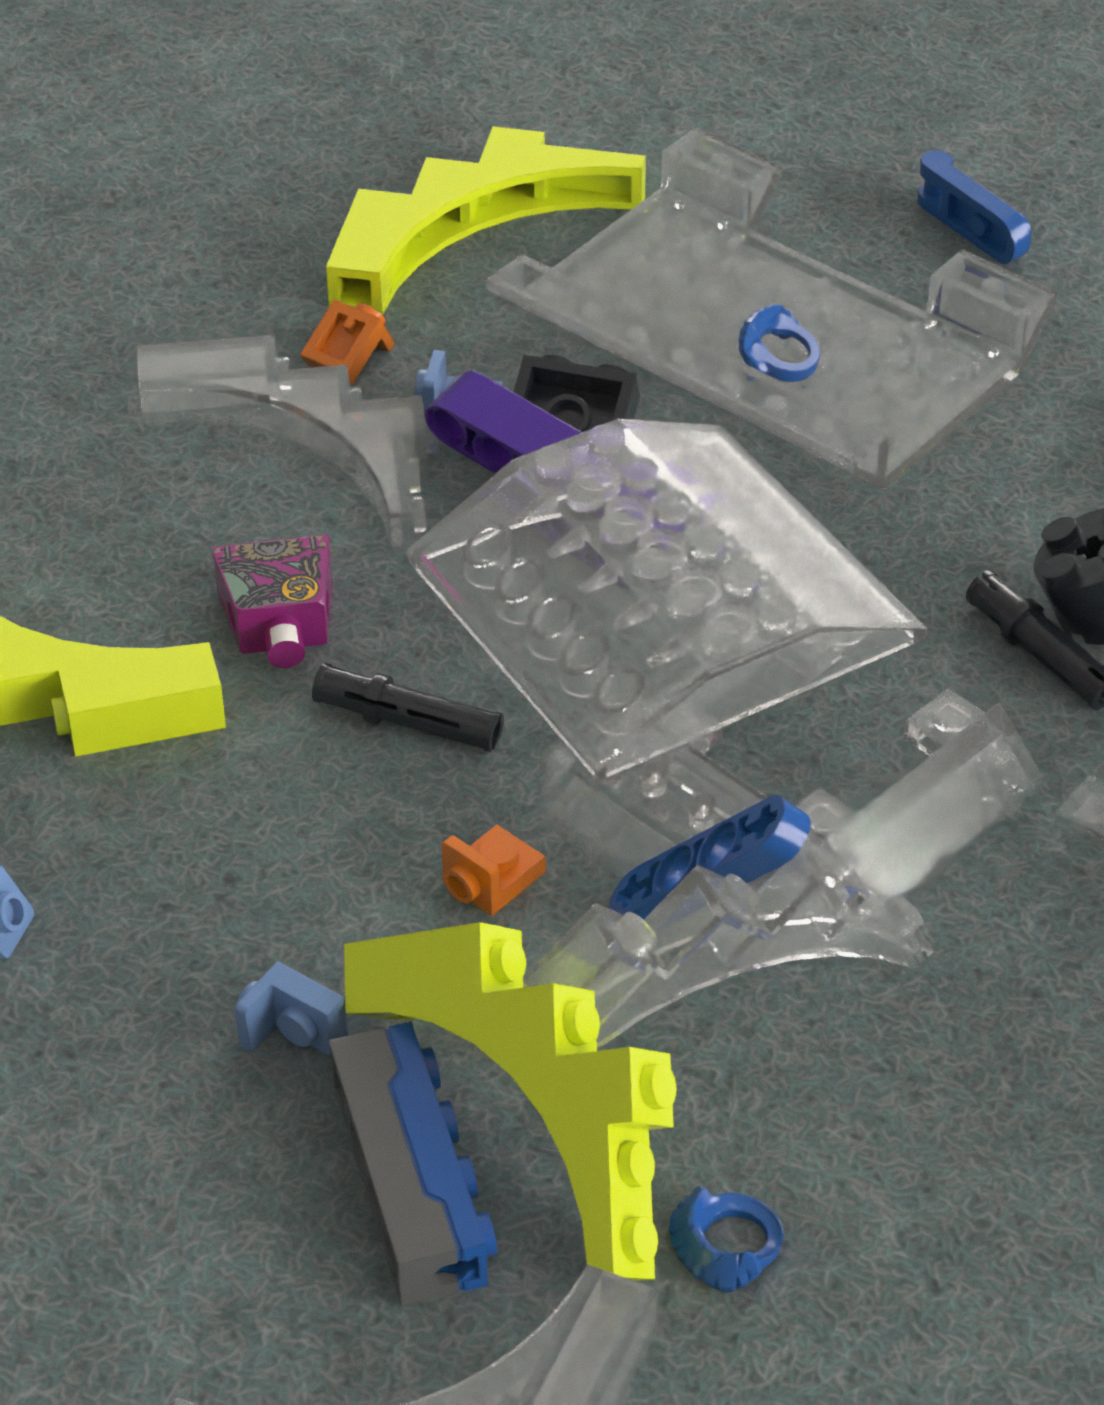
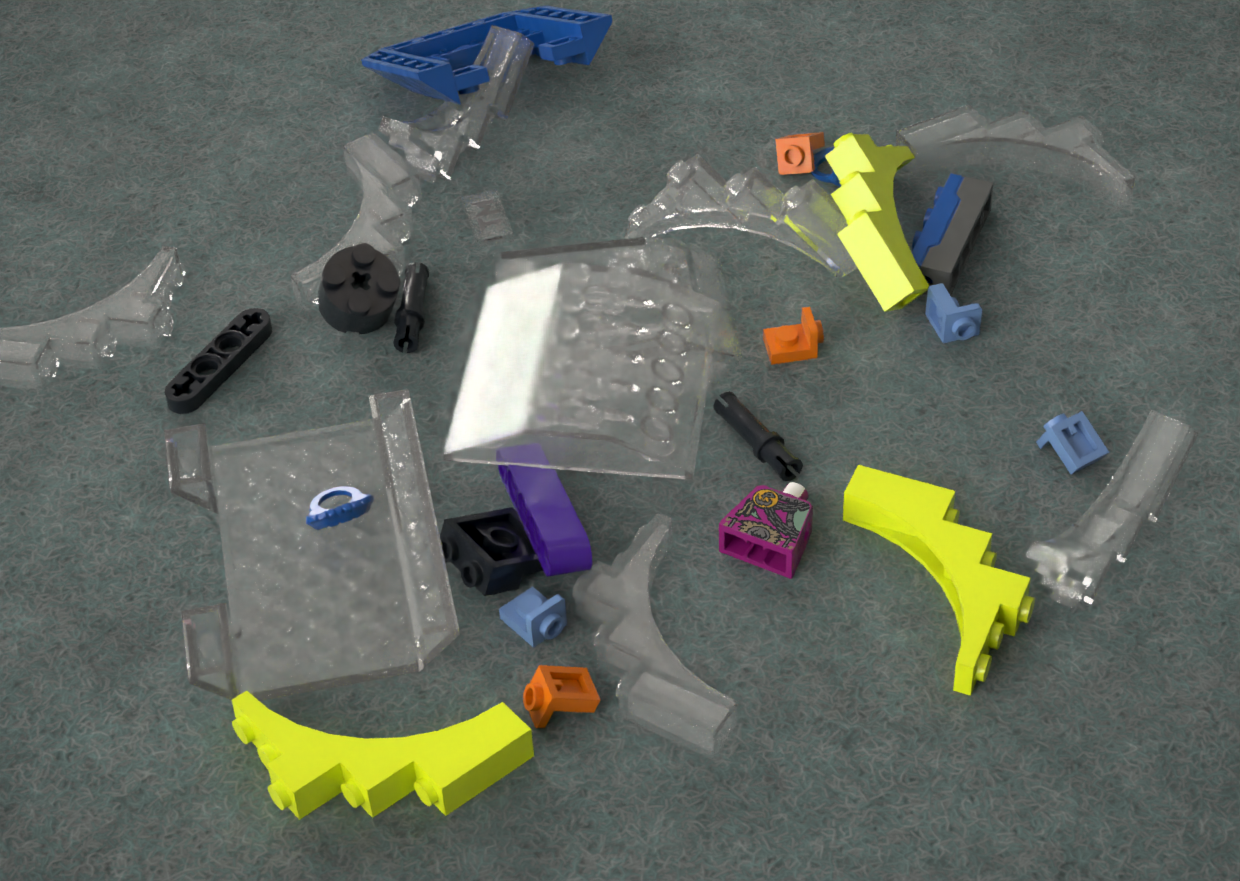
camera: 140 degrees left, 0 degrees up
(741, 845) = (715, 233): blue beam -> none
(809, 1206) = (796, 152): none -> orange bracket
(972, 209) = (87, 567): blue plate -> none

